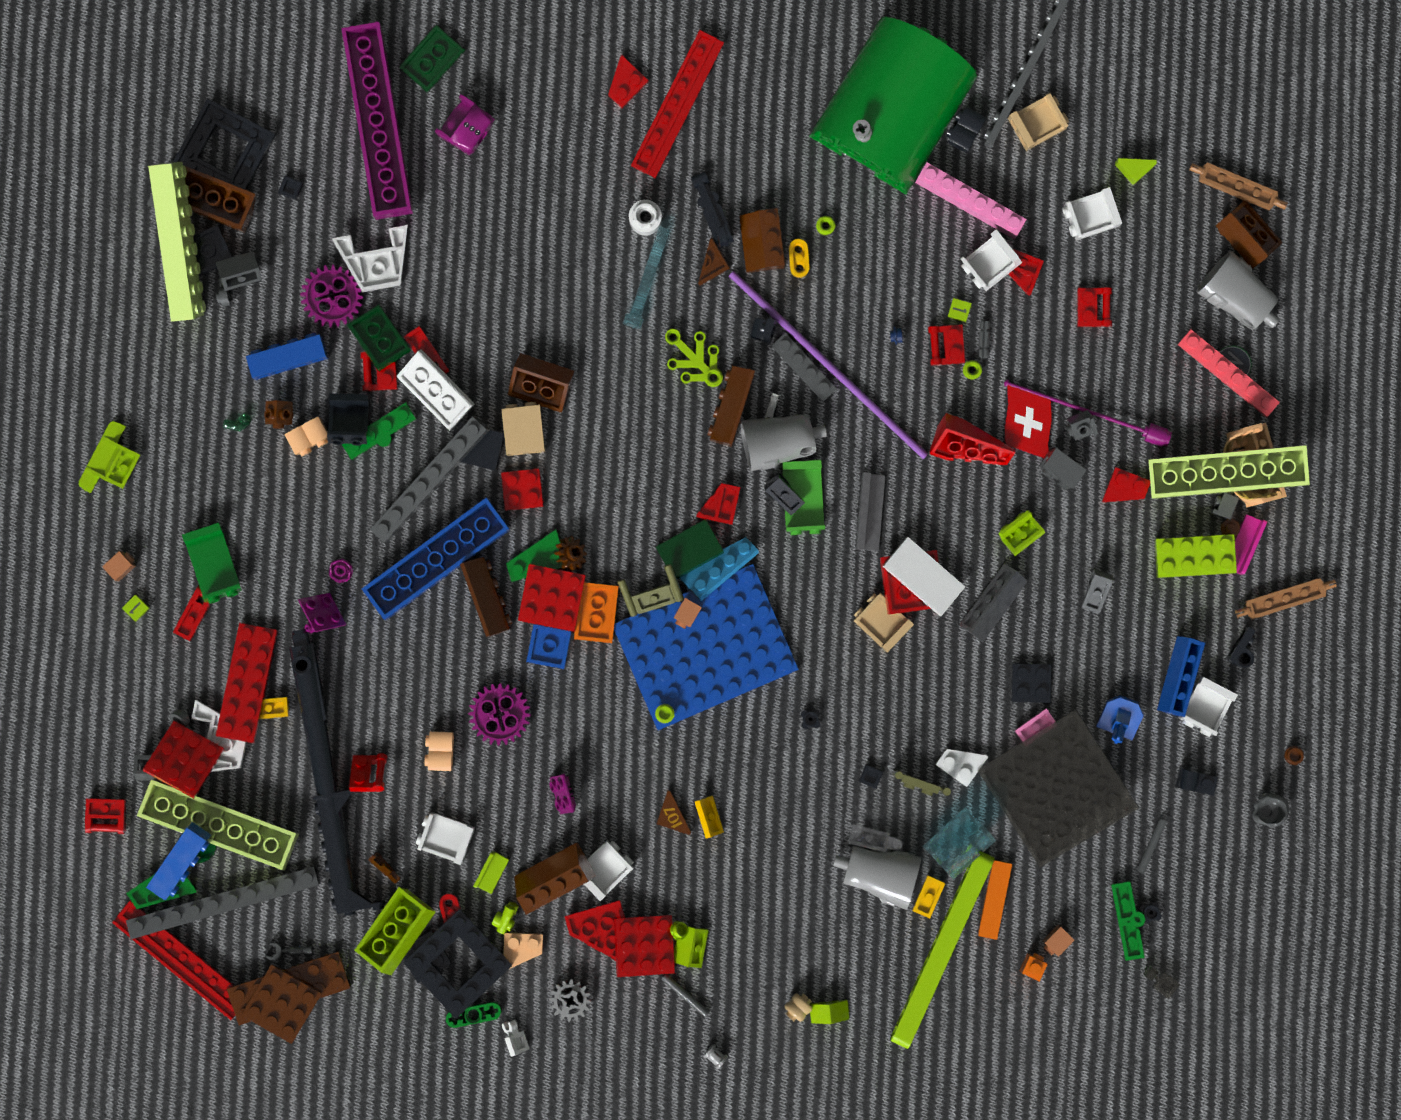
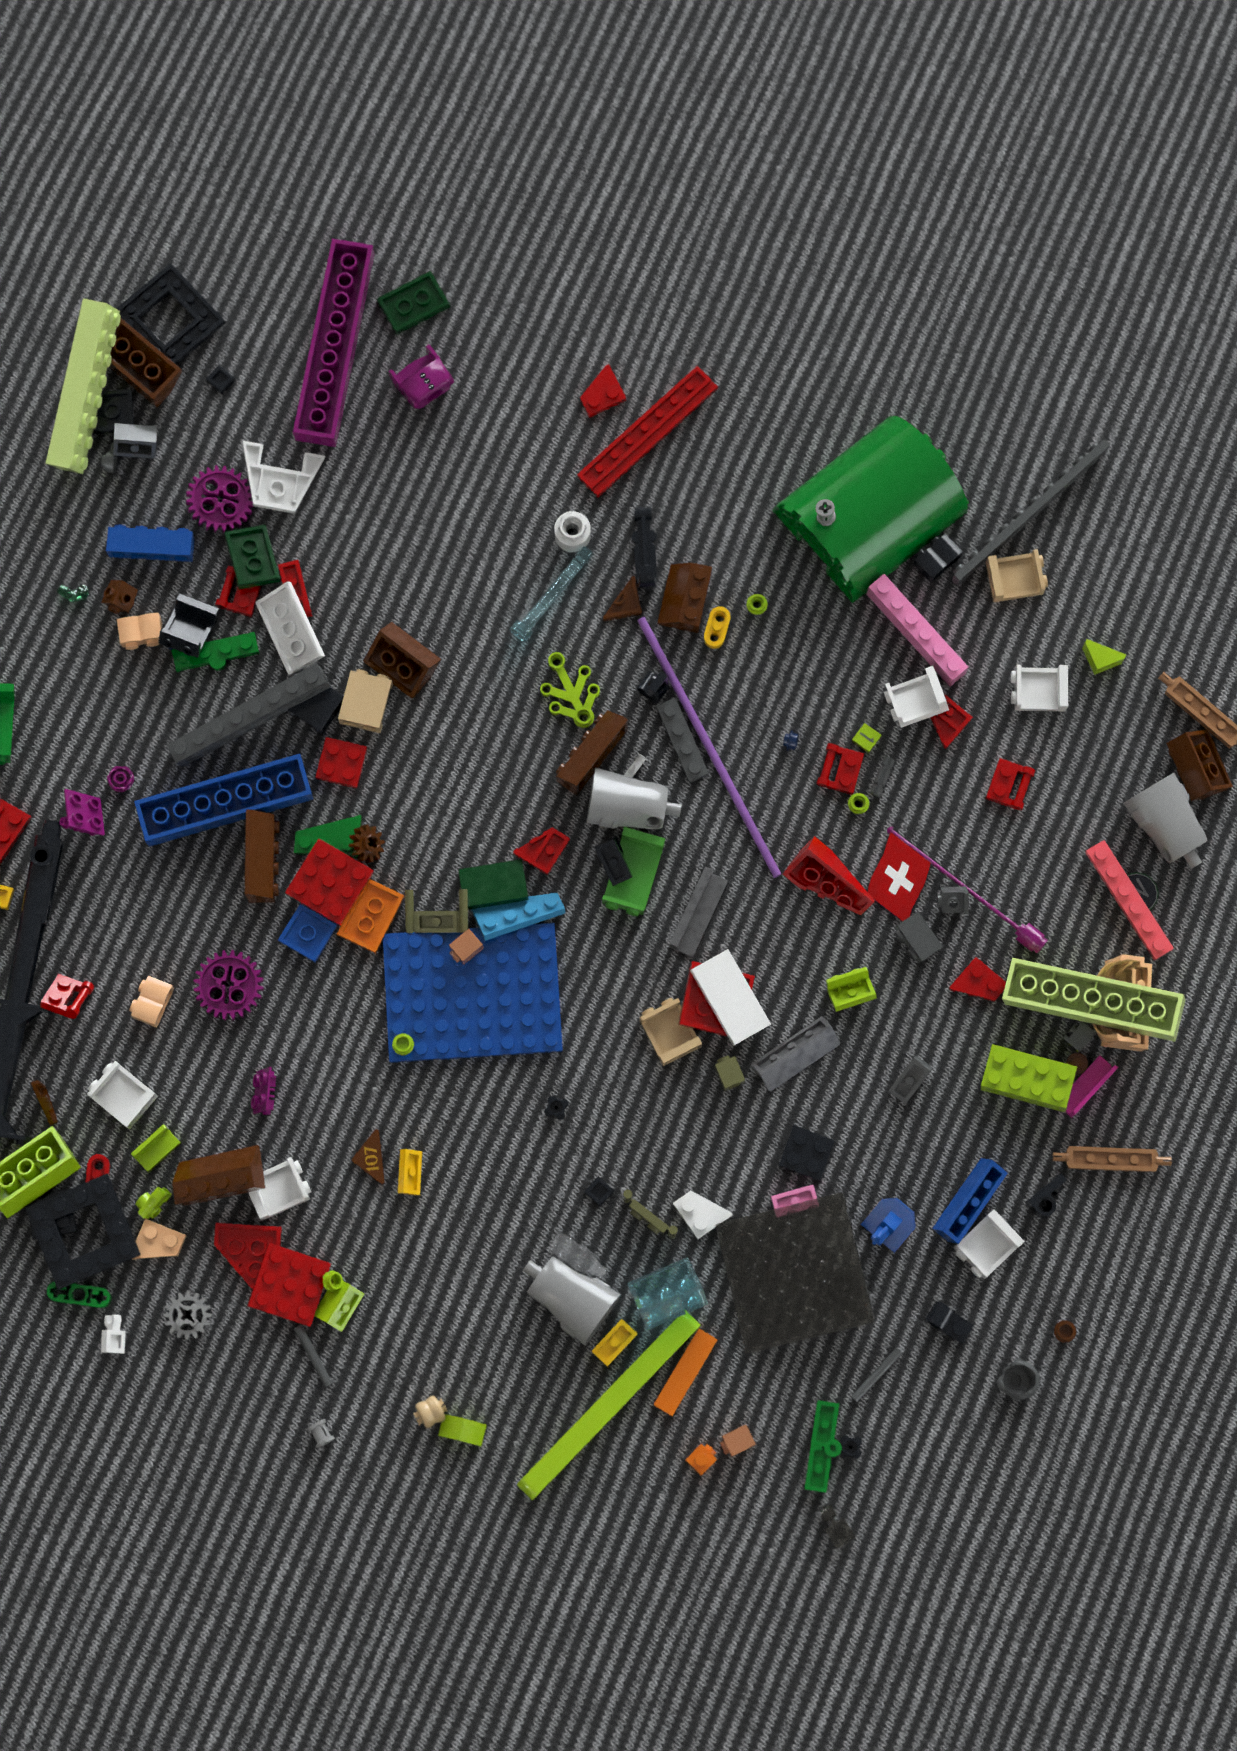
camera: 20 degrees right, 10 degrees down
(944, 640) = (729, 1072): none -> olive brick

